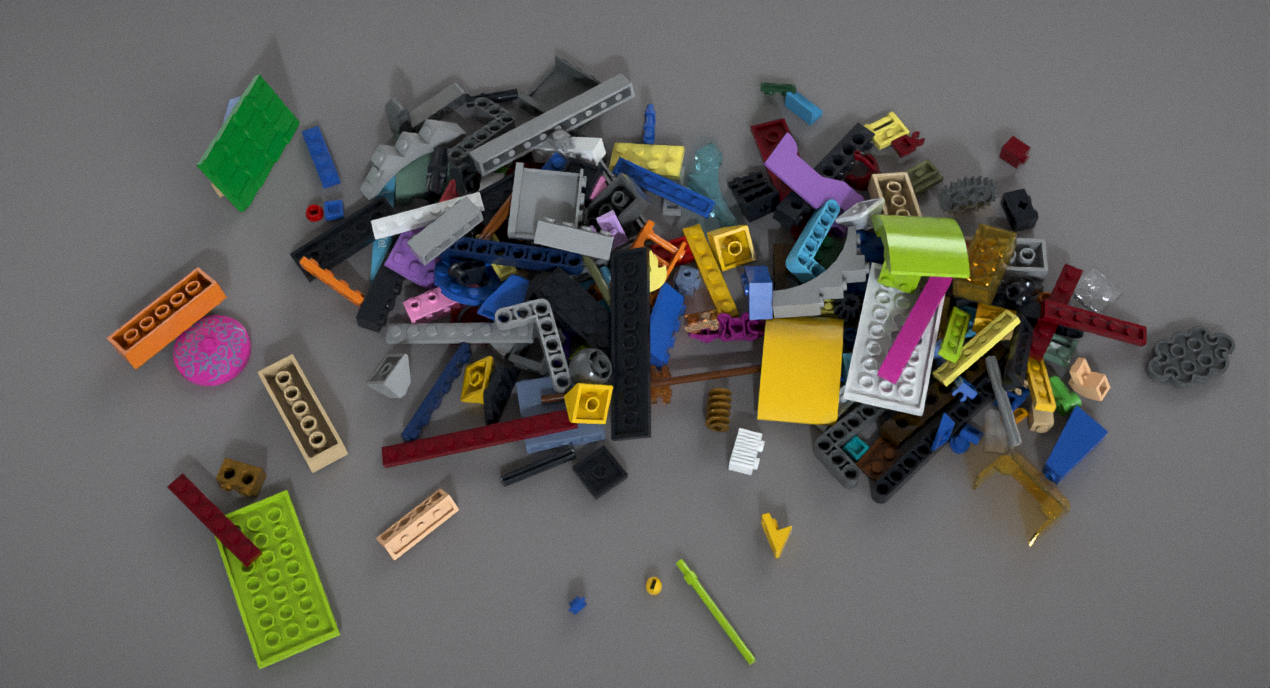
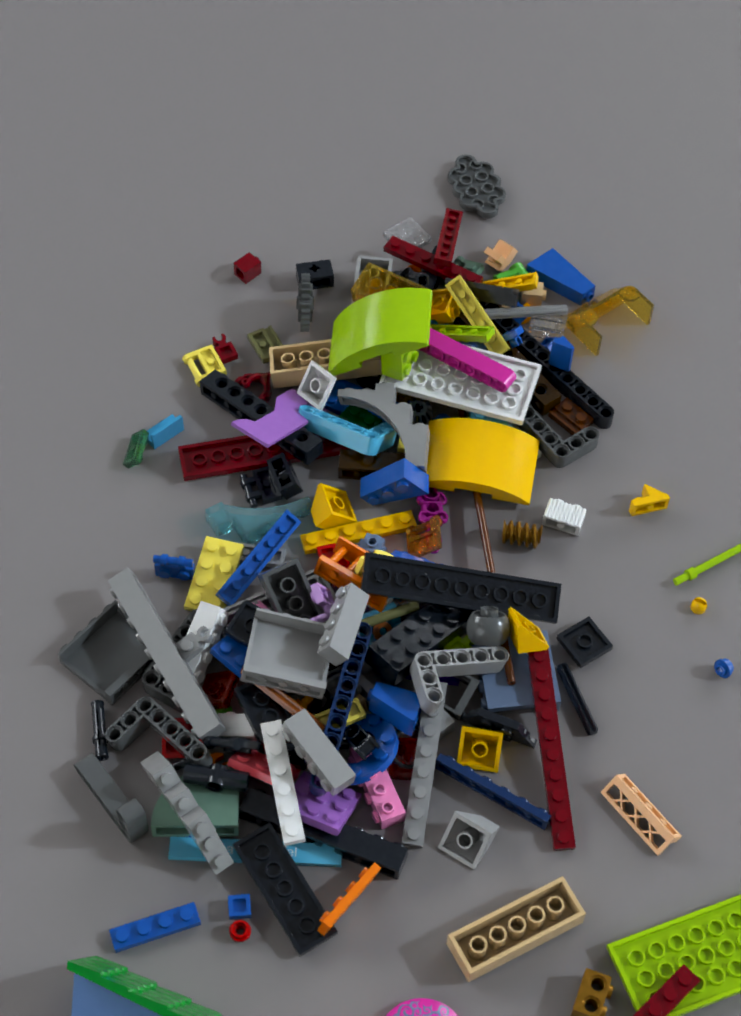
camera: 90 degrees left, 5 degrees down
(855, 448) = (562, 431): teal tile -> none

